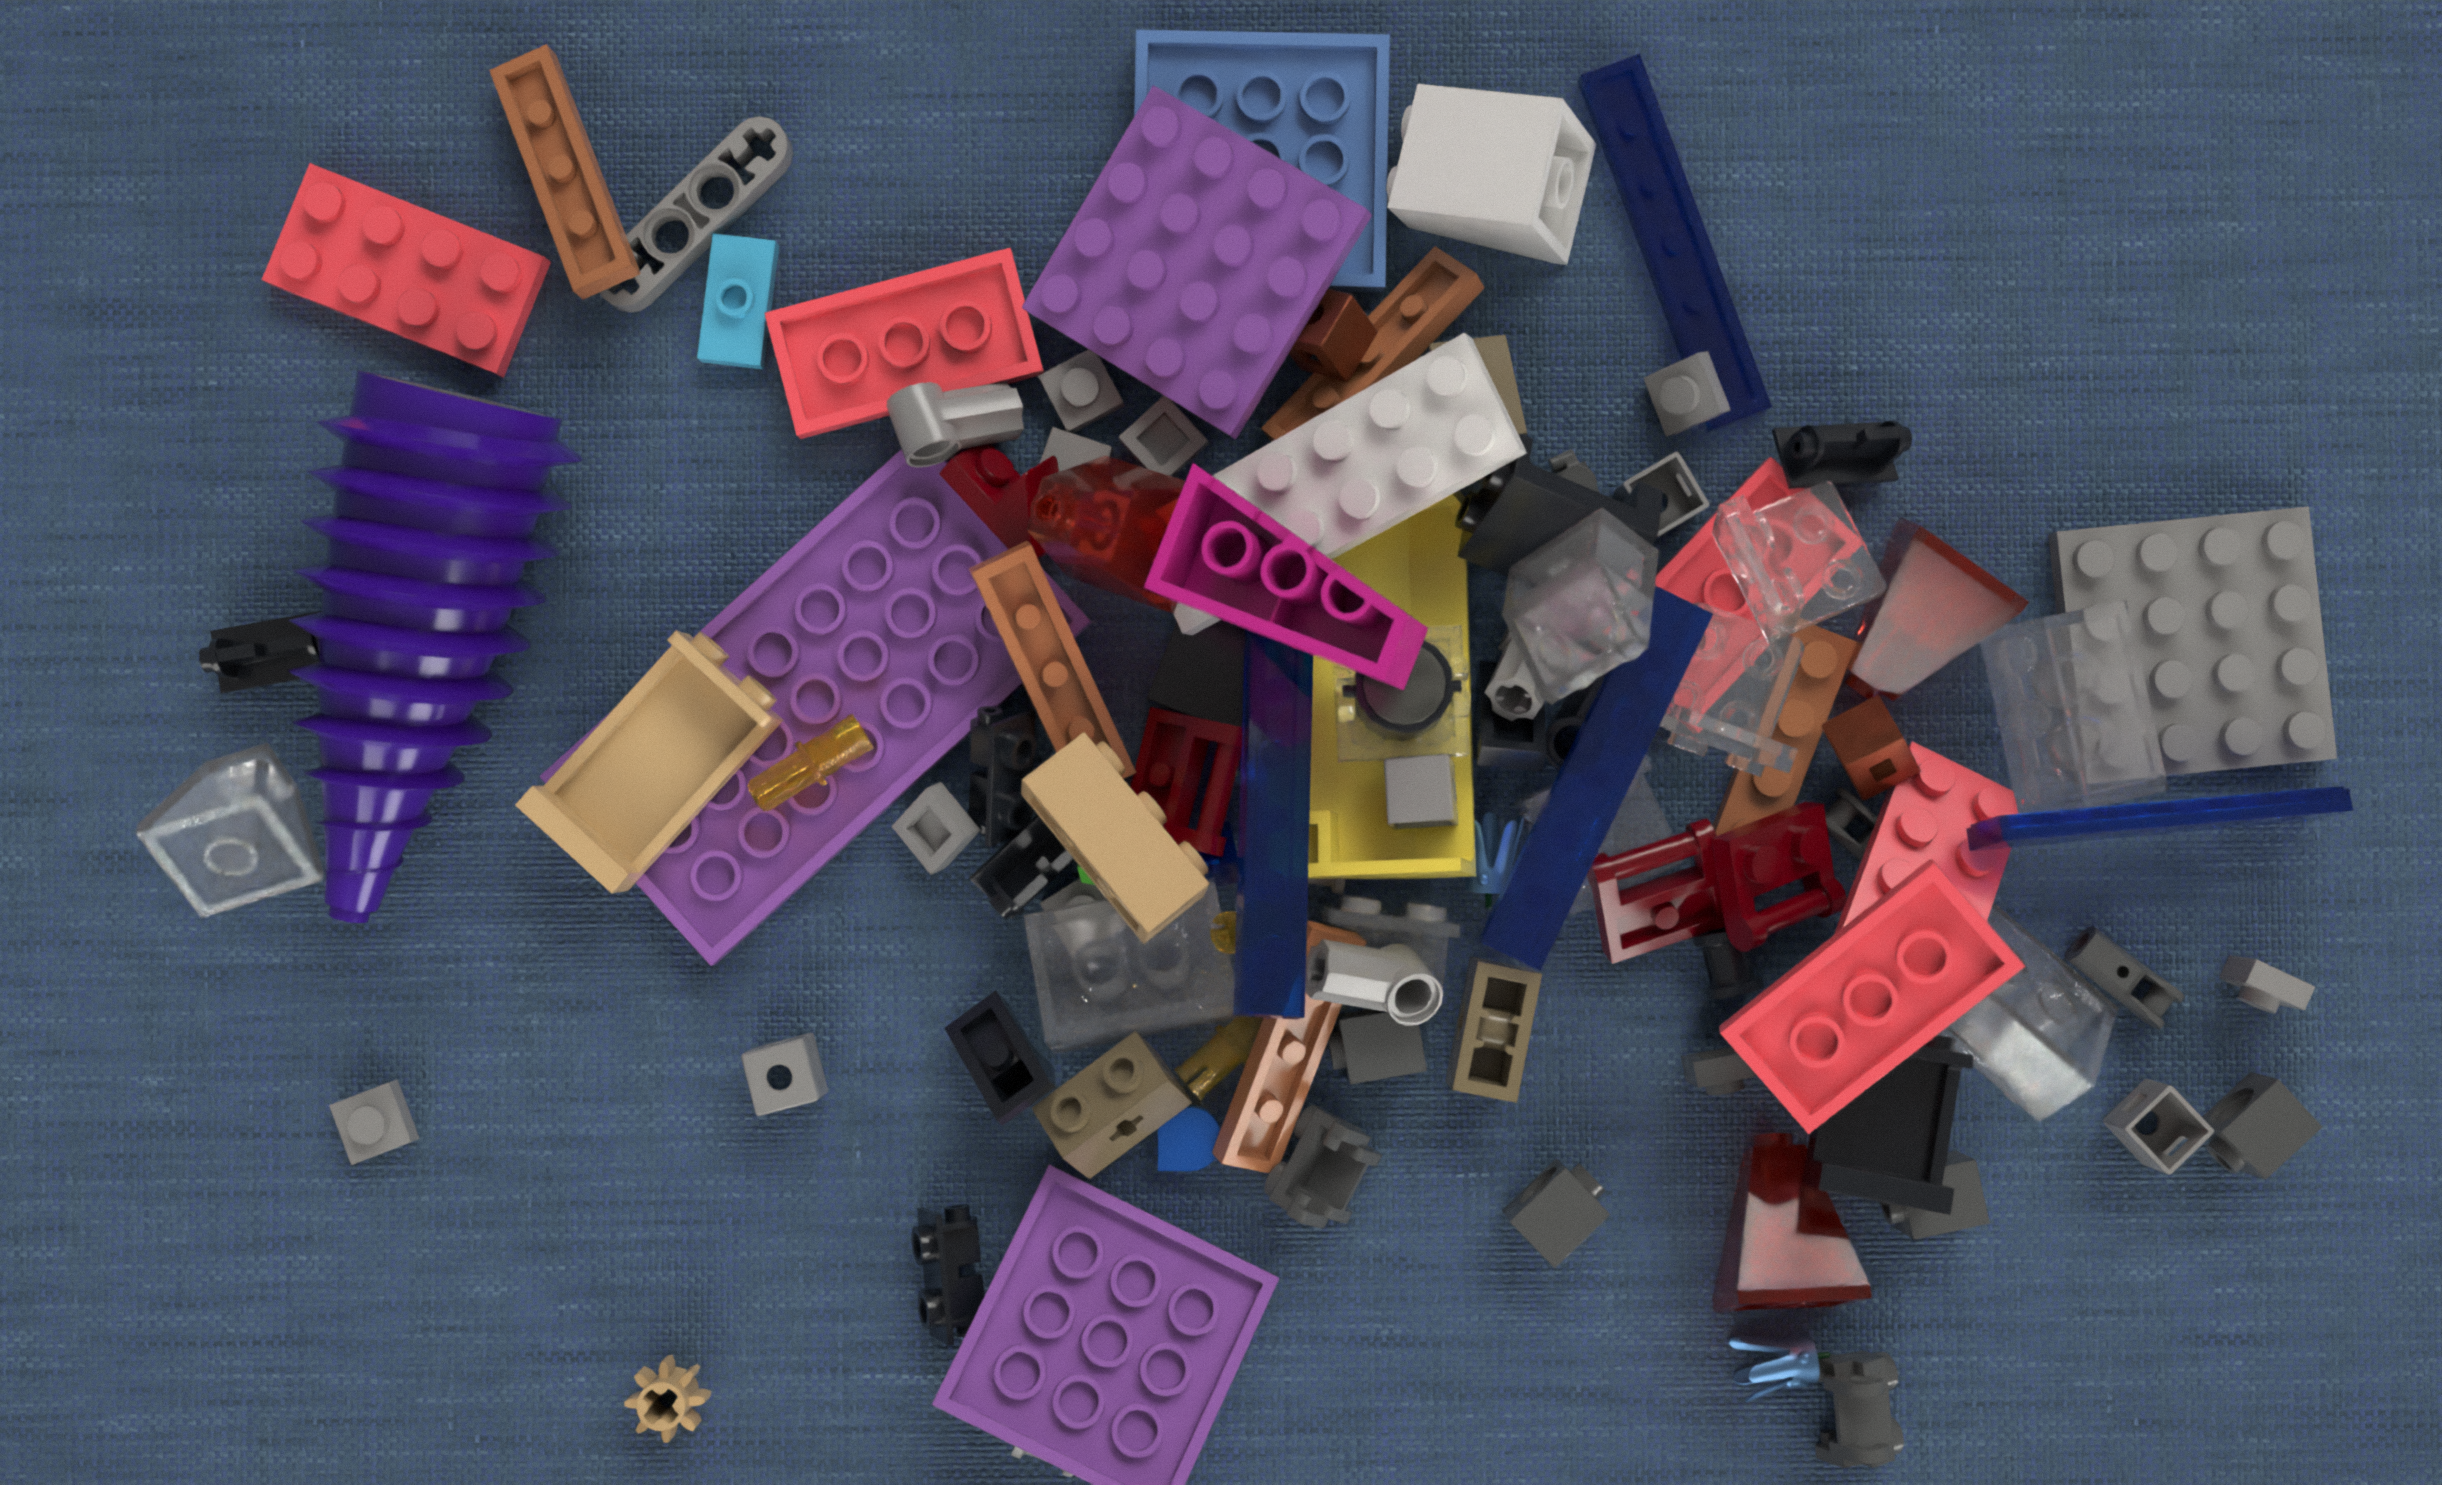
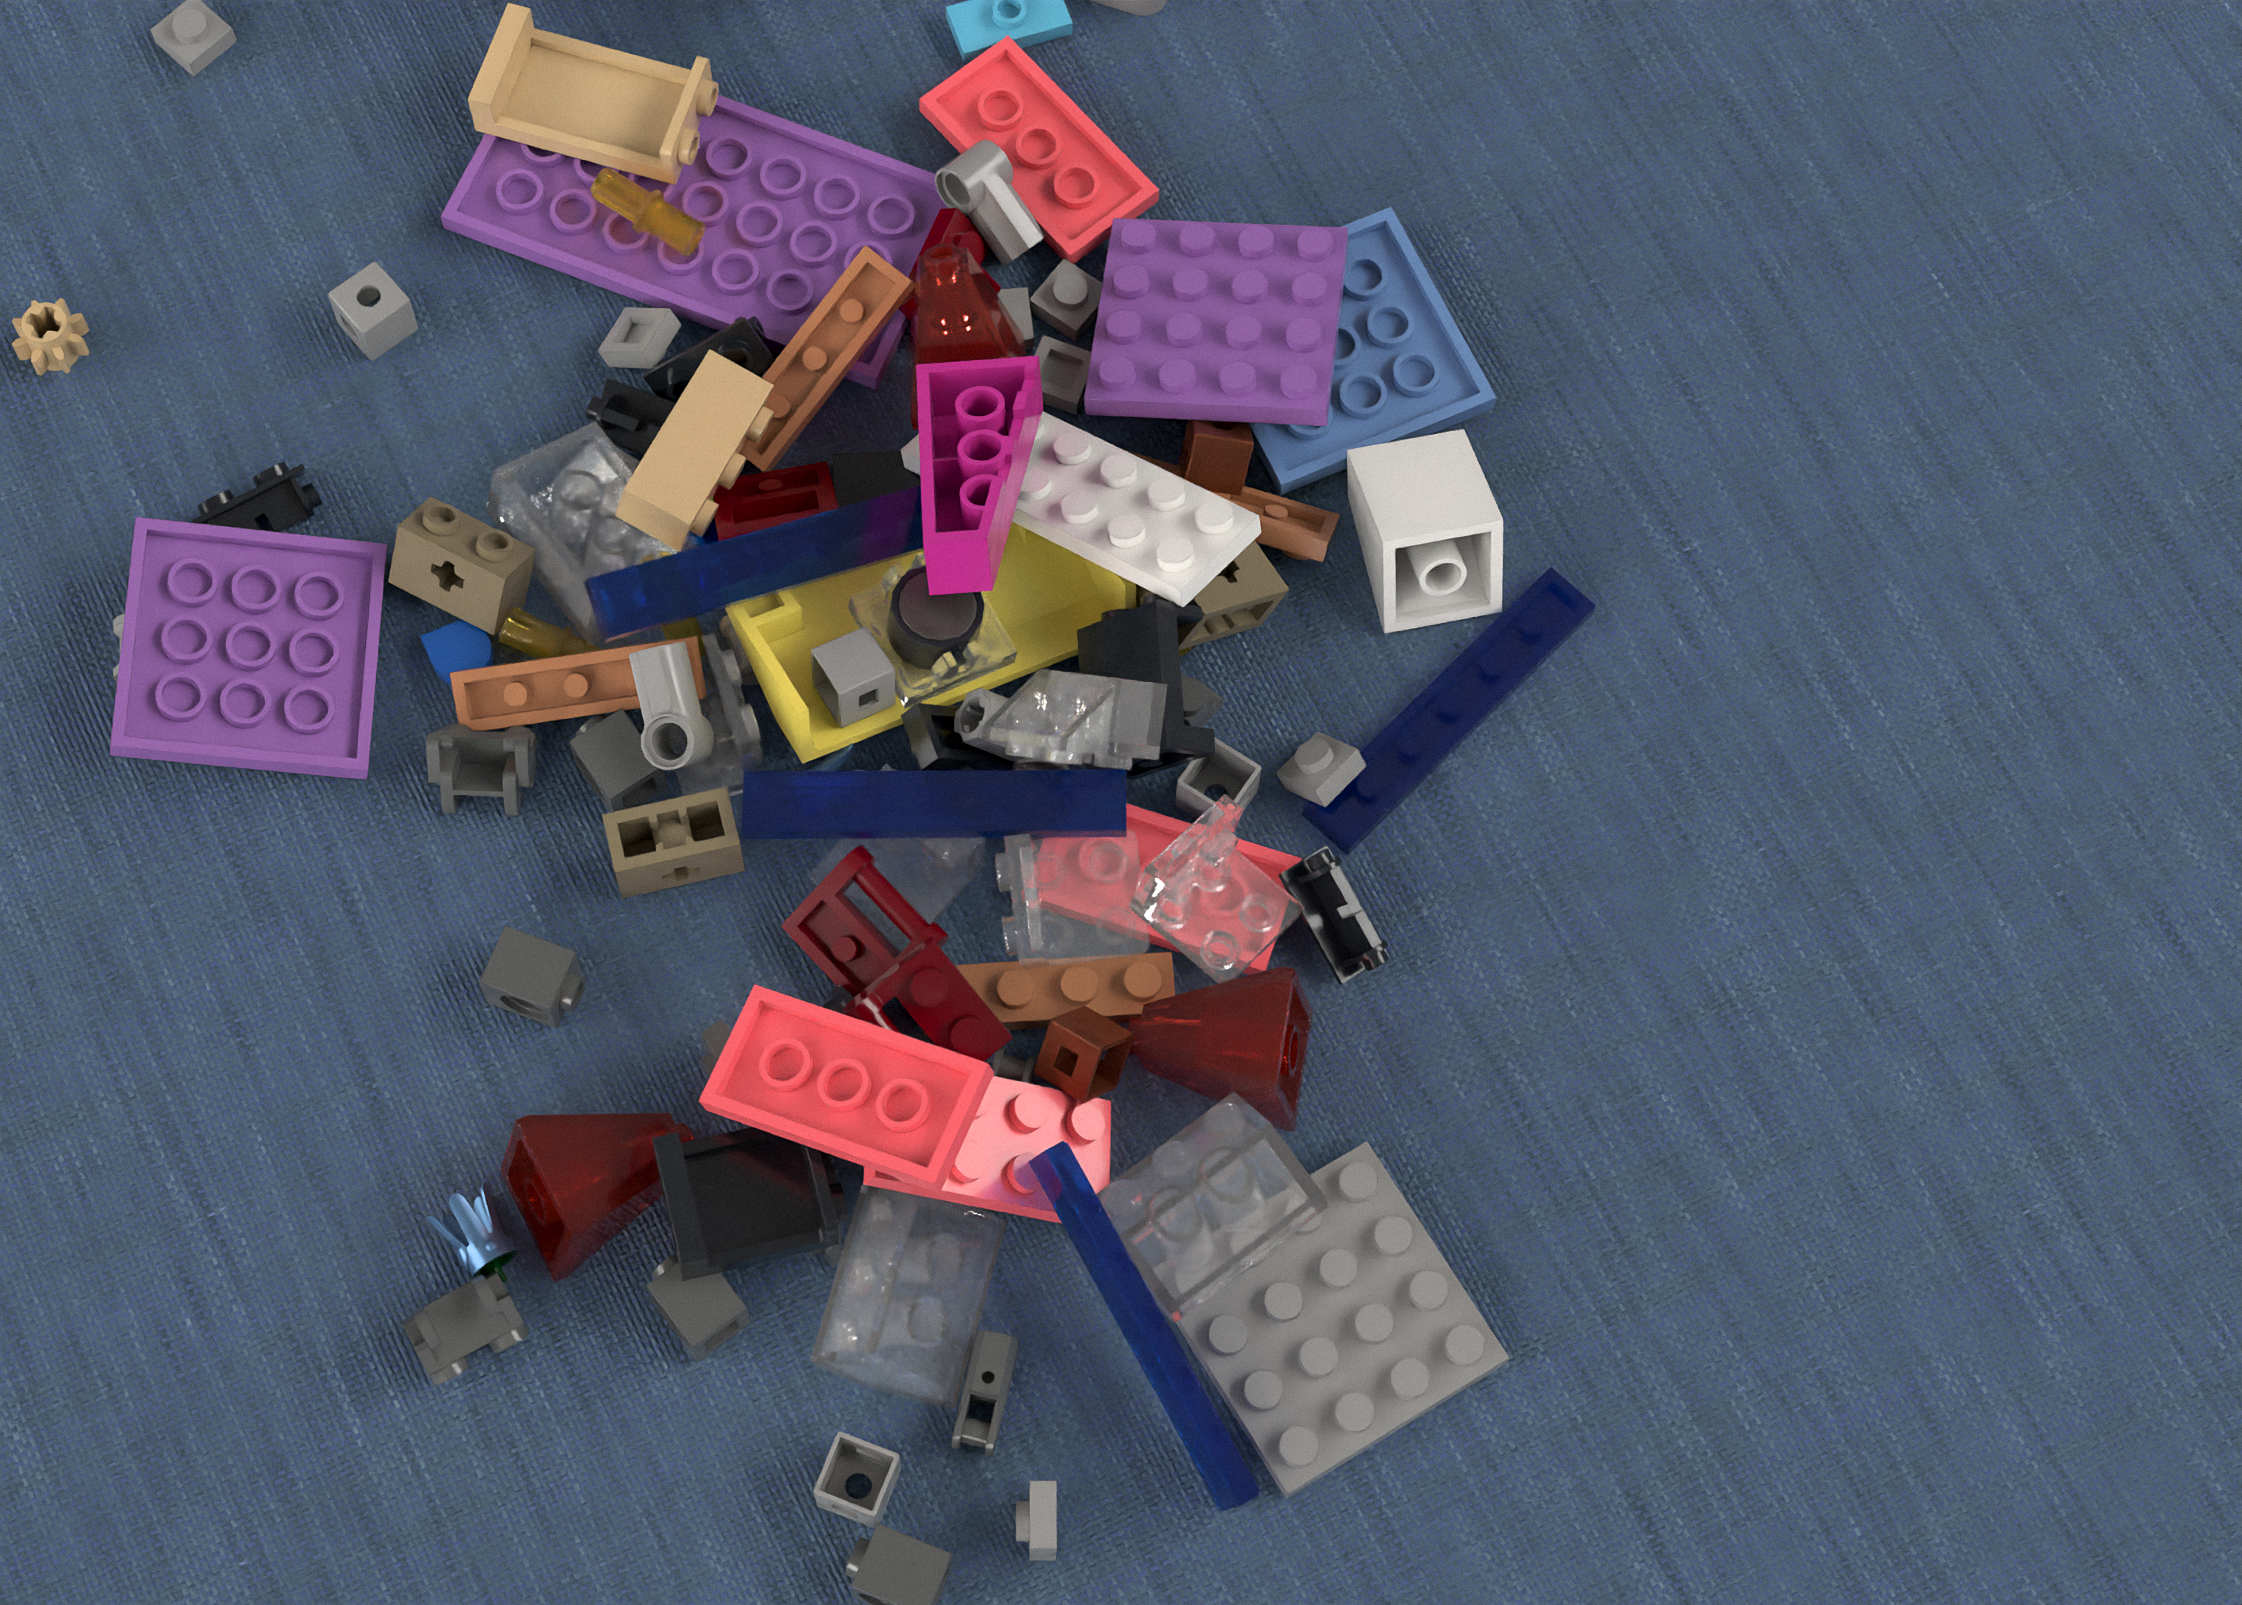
camera: 65 degrees right, 20 degrees down
(1001, 1057) = (461, 465): black slope -> none

